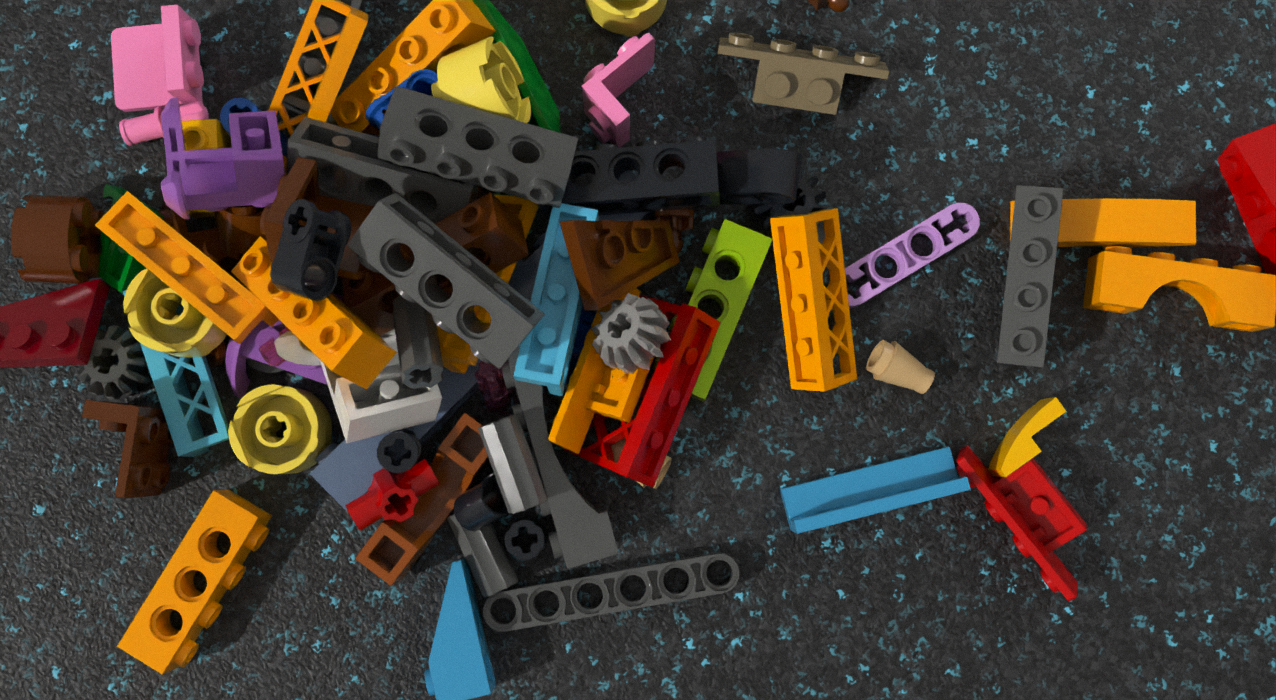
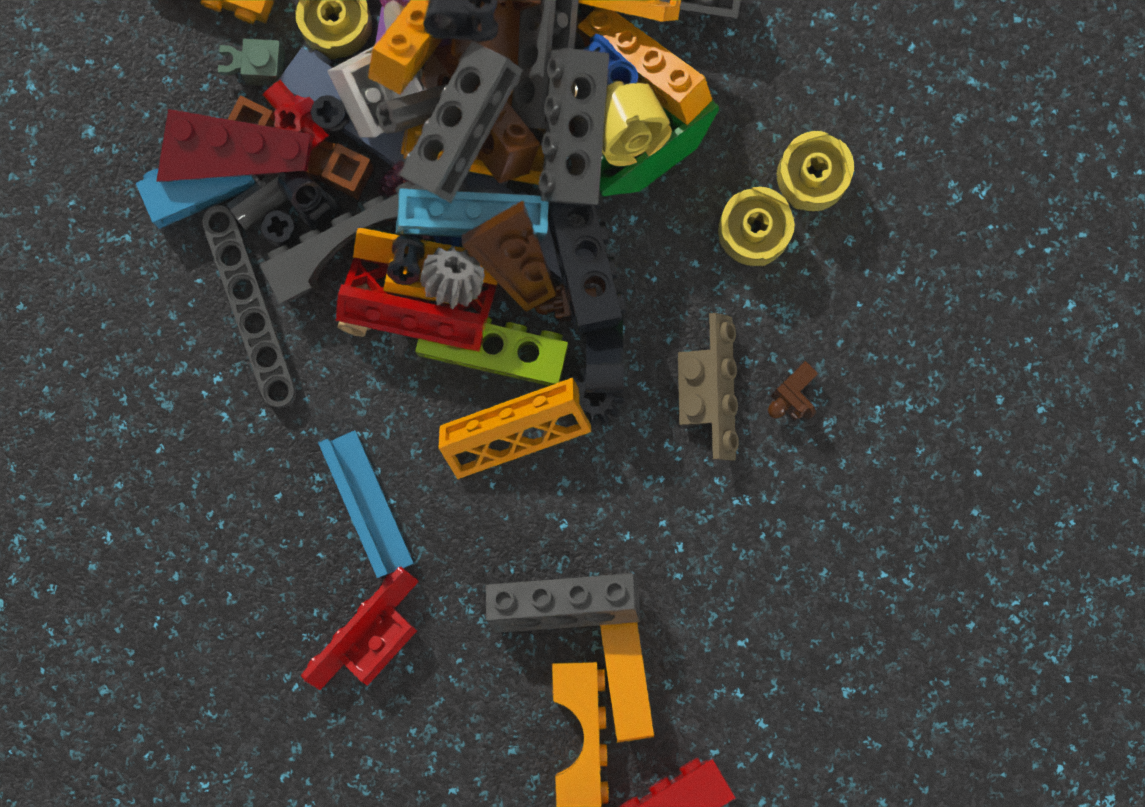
camera: 80 degrees right, 0 degrees up
(318, 530) = (258, 62): none -> sand green brick
(416, 592) = (219, 147): none -> dark red wing
(512, 464) = (334, 203): dark grey axle -> none
(599, 387) = (410, 260): none -> black bush
(605, 83) = (661, 221): bright pink bracket -> none
(898, 367) = (472, 510): tan cone -> none
(905, 257) = (571, 499): lavender beam -> none
(1017, 445) = (421, 619): yellow slope -> none

